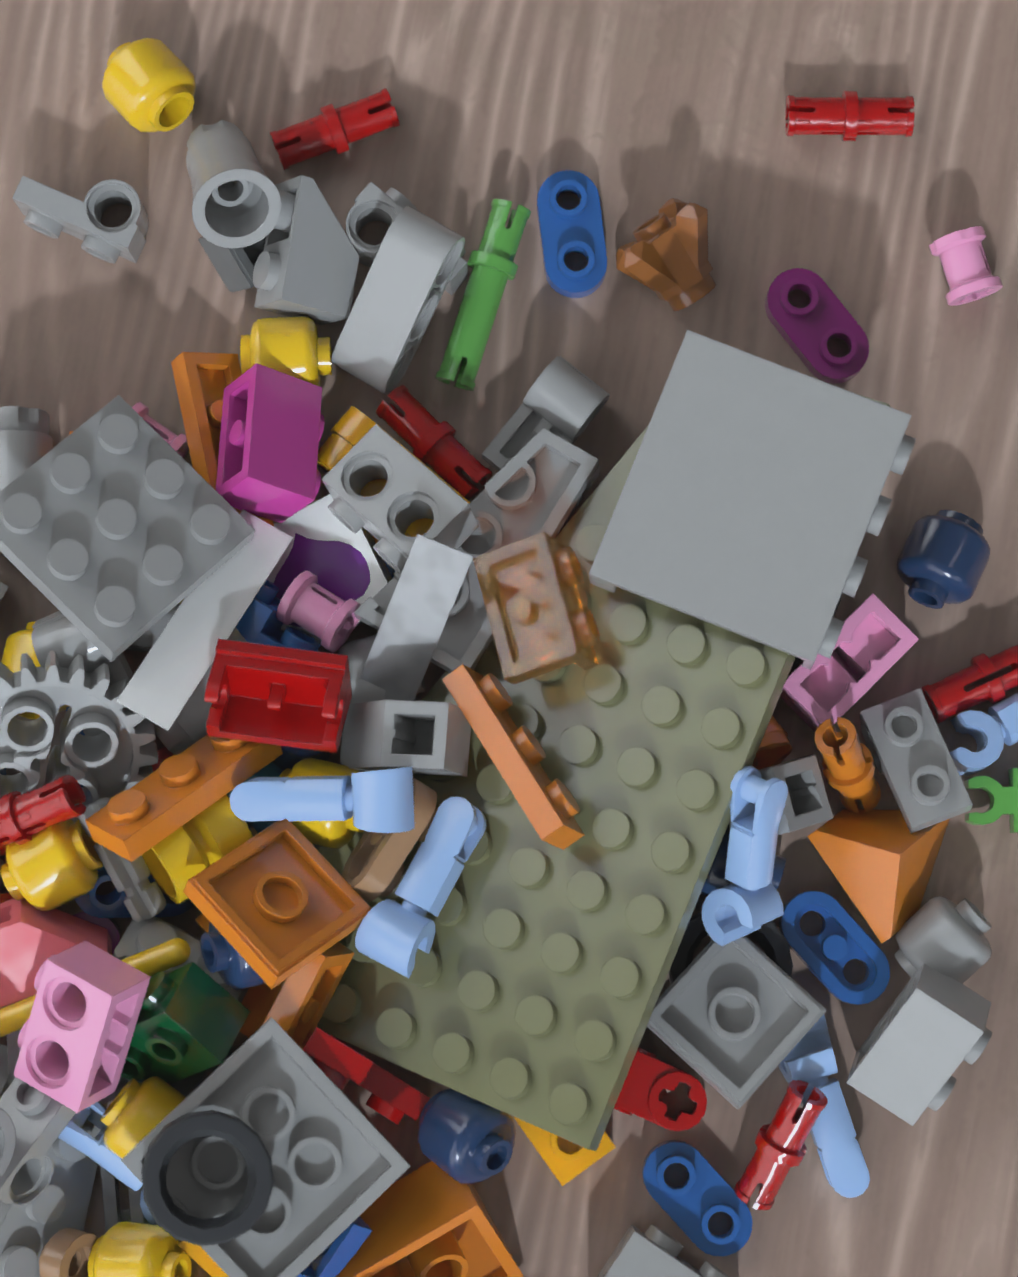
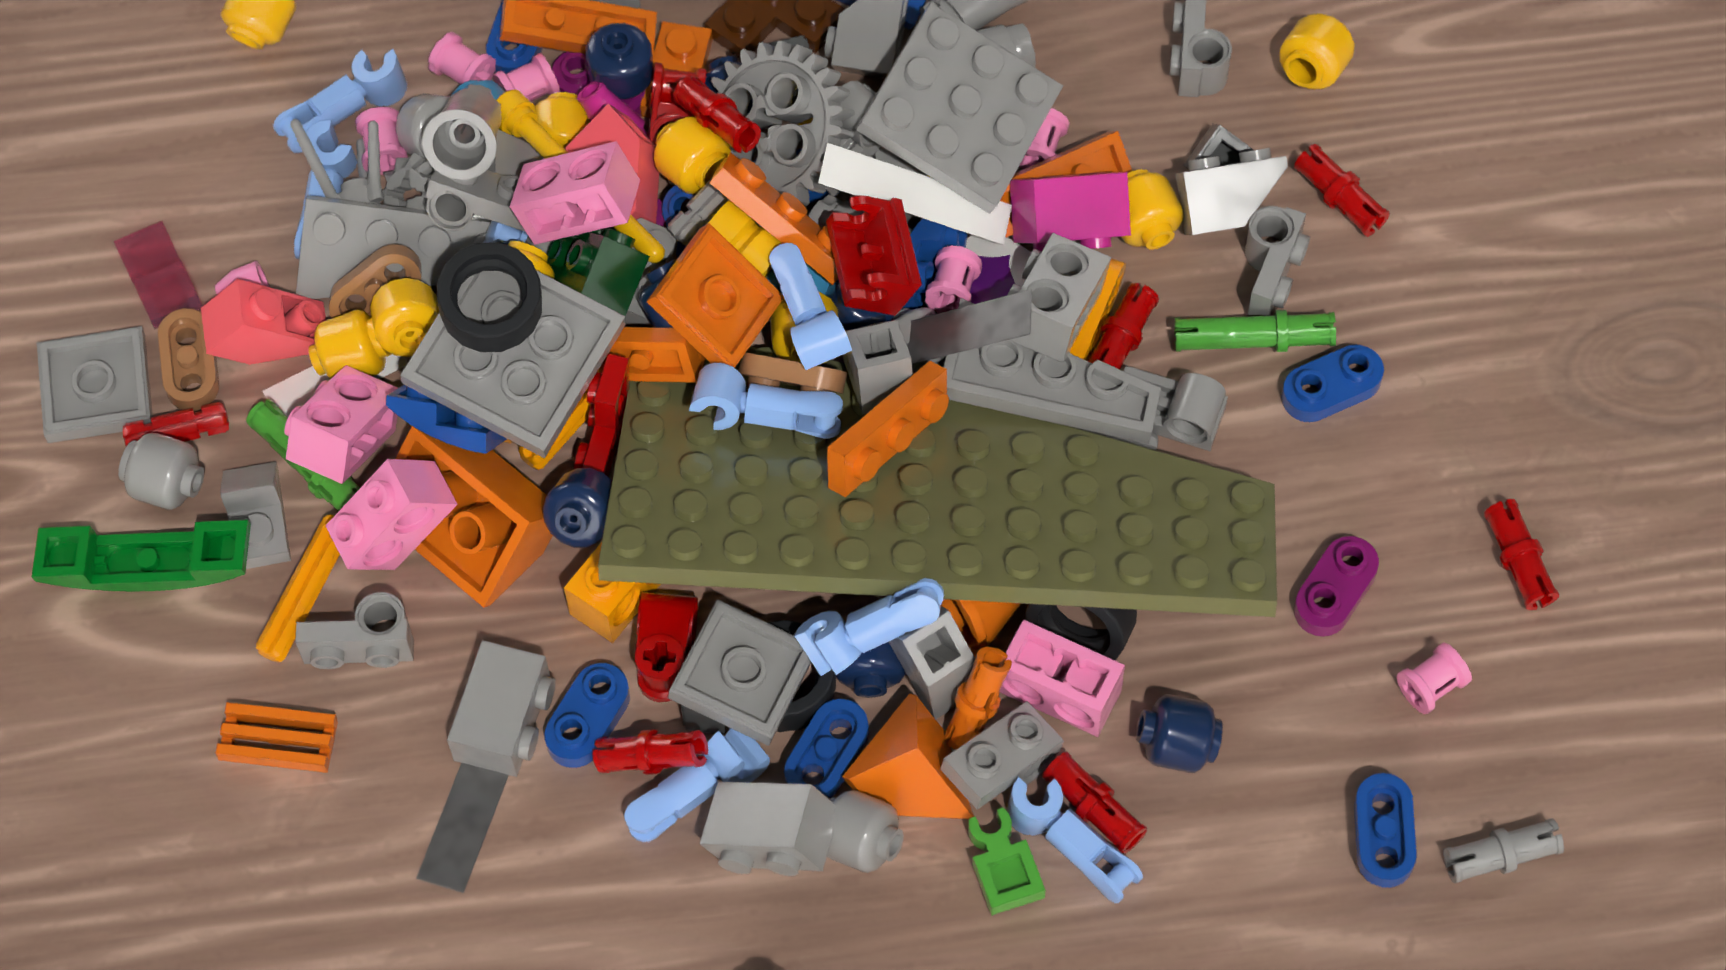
camera: 75 degrees right, 20 degrees down
(231, 193) = (1256, 115): light grey plant -> none
(397, 299) = (1220, 259): light grey beam -> none
(536, 607) = (1012, 412): clear orange bracket -> none
(671, 254) = (1343, 448): dark orange rock -> none
(753, 498) = (1158, 530): light grey panel -> none

